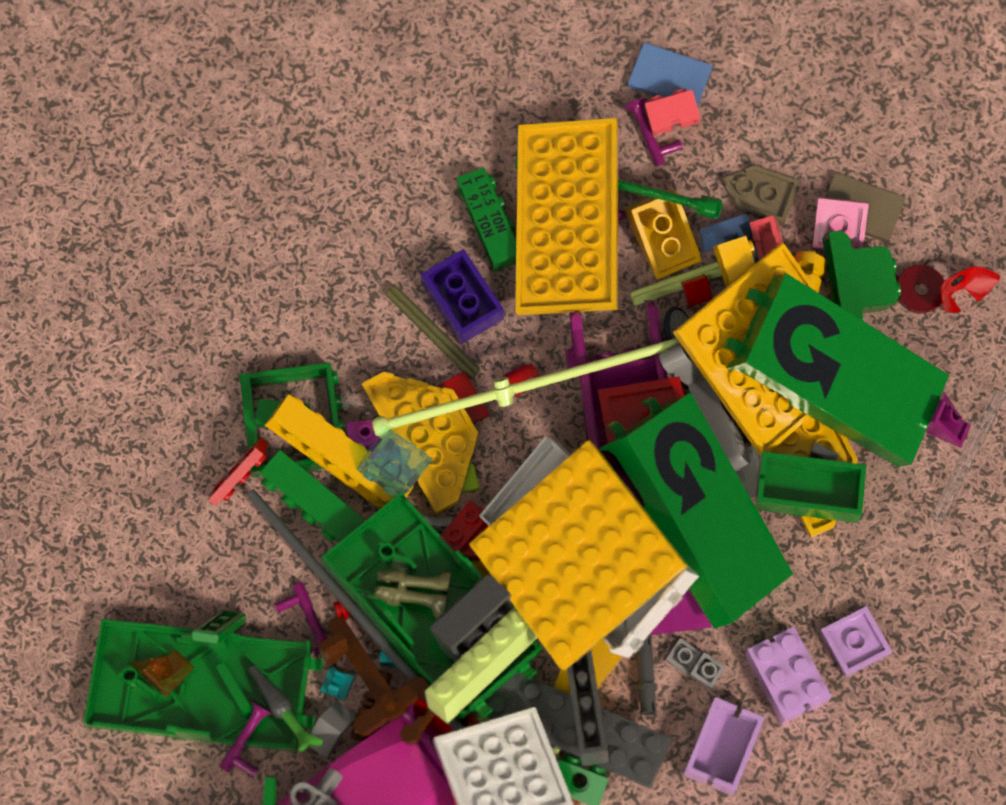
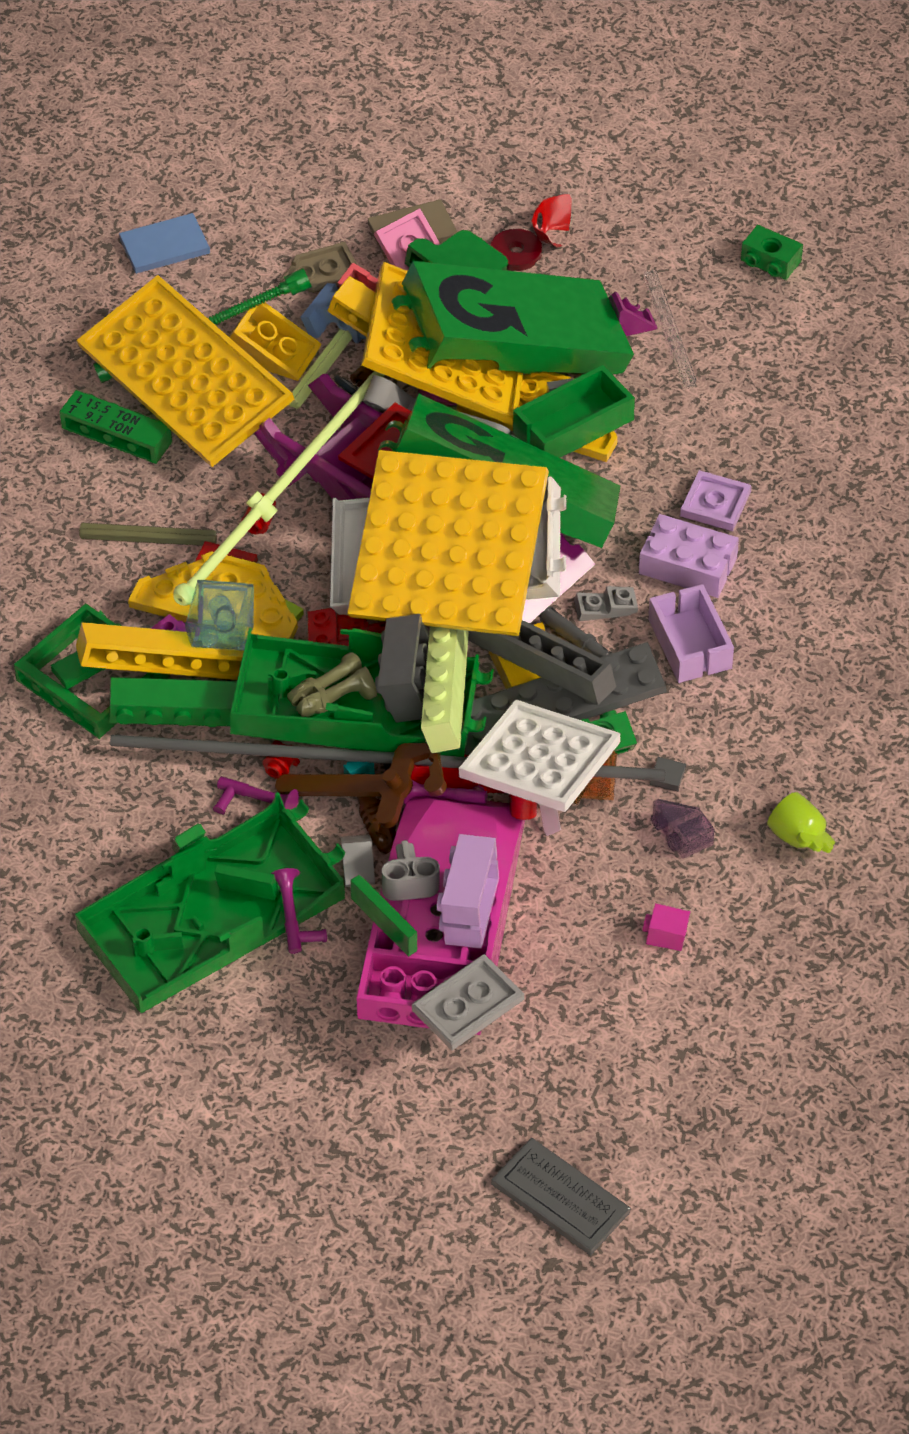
camera: 40 degrees left, 20 degrees down
(164, 671) = (171, 915): clear orange slope -> none
(239, 472) = (88, 726): plate -> none
(281, 708) = (301, 860): dark grey piece -> none
(332, 649) = (303, 788): reddish brown slope -> none
(337, 684) = (328, 823): teal tile -> none
(462, 296) = (150, 488): dark purple brick -> none
(656, 152) = (209, 298): magenta piece -> none
(672, 110) = (195, 255): coral brick -> none
(696, 290) = (340, 361): red tile -> none

